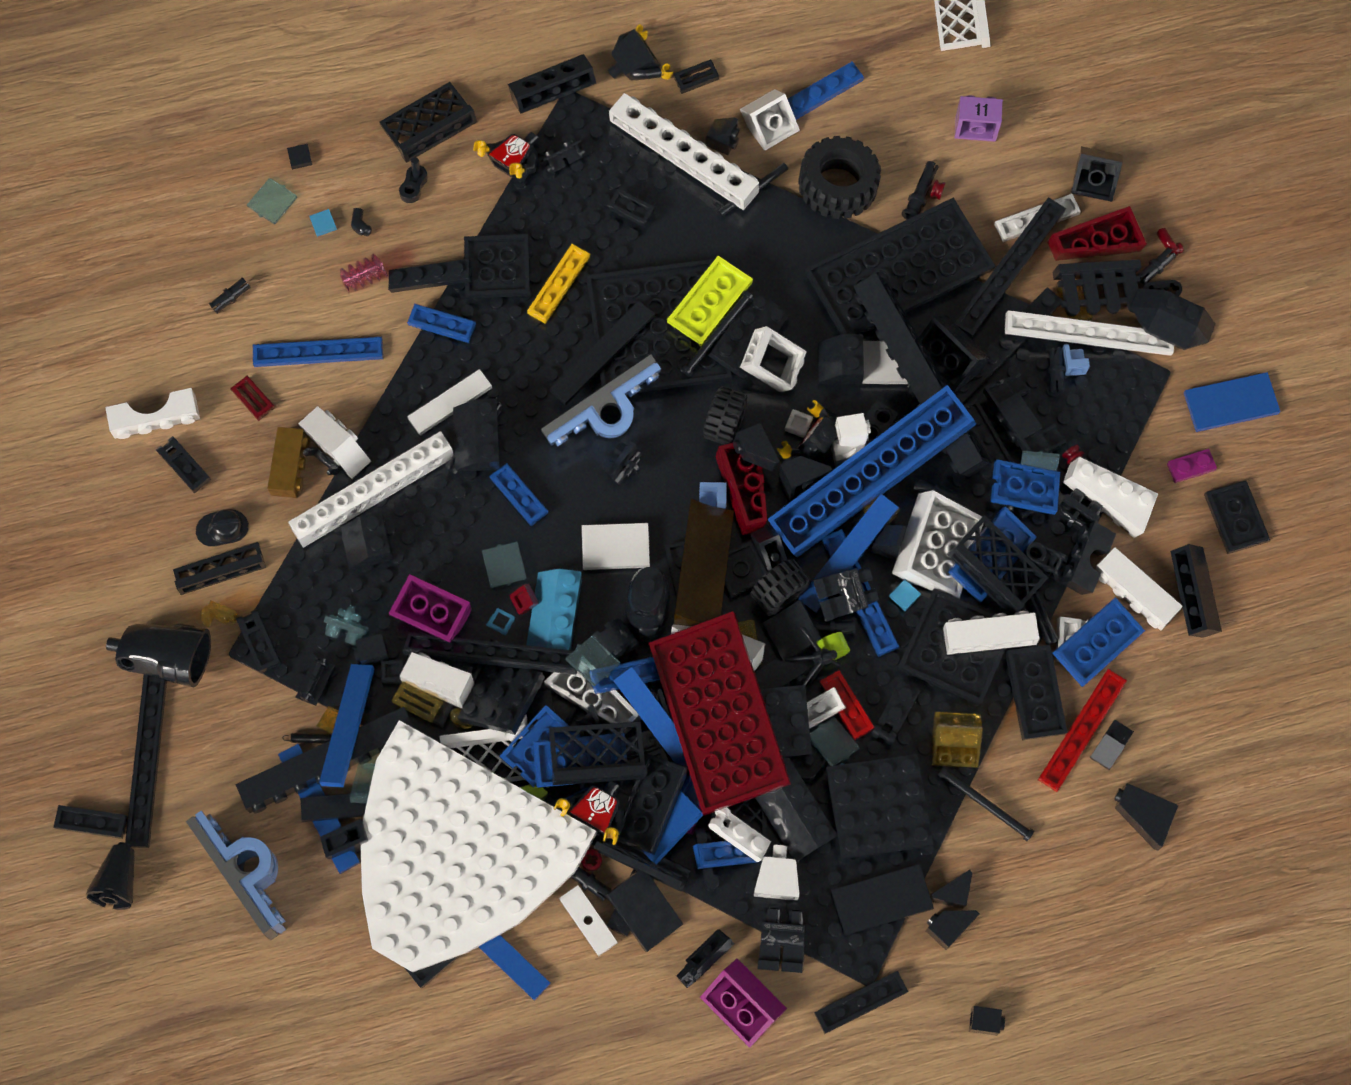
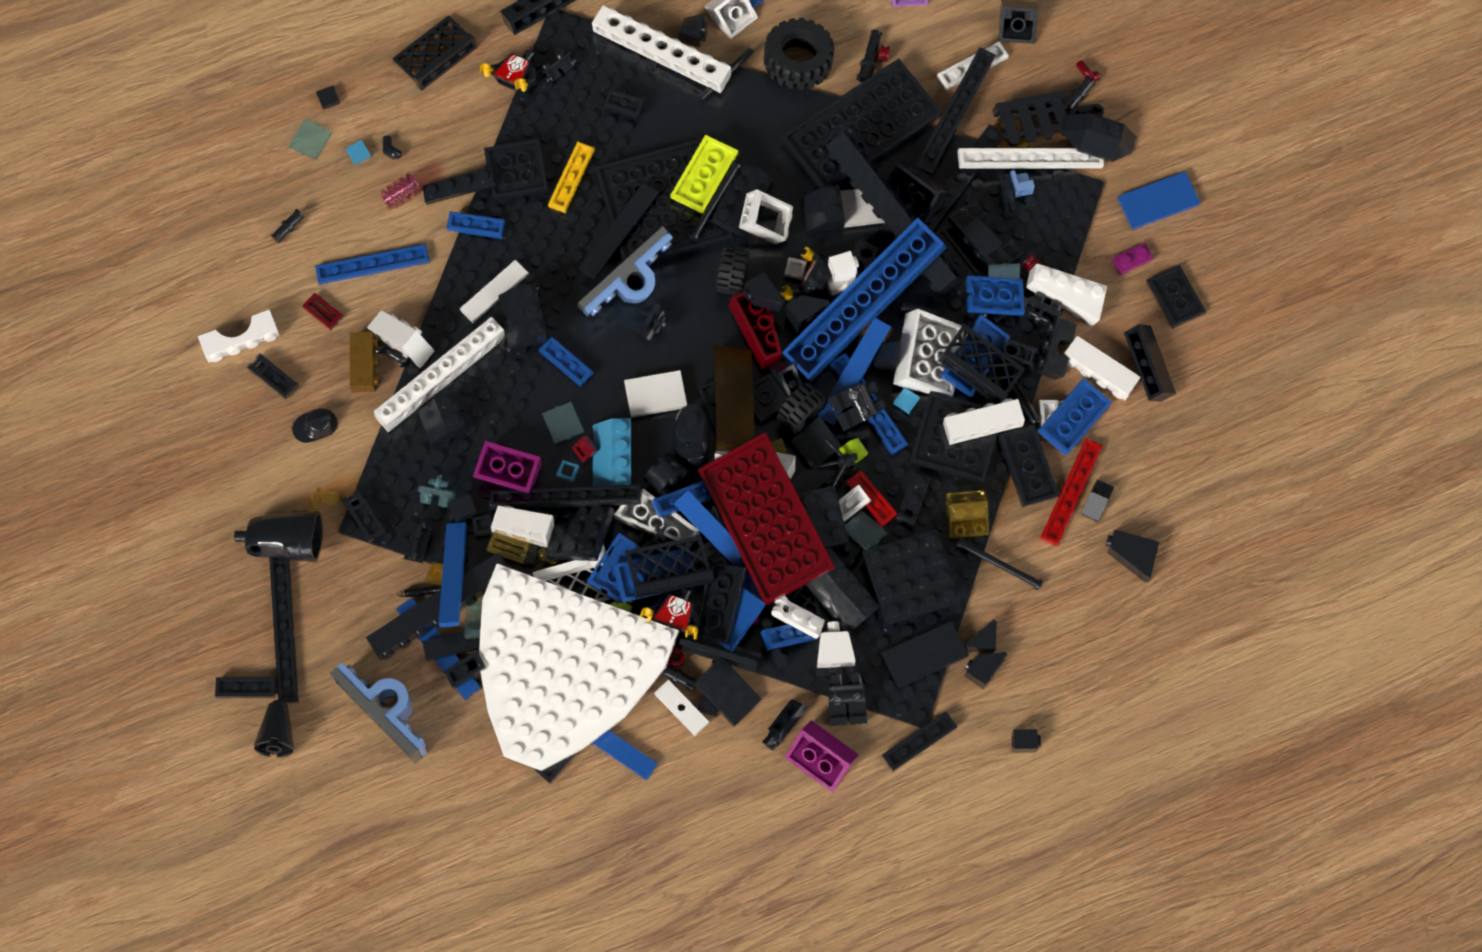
camera: 10 degrees left, 0 degrees up
(221, 572) = (320, 463): black fence -> none
(415, 179) = (431, 107): black piece -> none
(592, 661) = (653, 490): clear light blue piece -> none
(713, 494) = (732, 338): medium blue panel -> none
(1101, 236) = (1028, 75): dark red wedge -> none

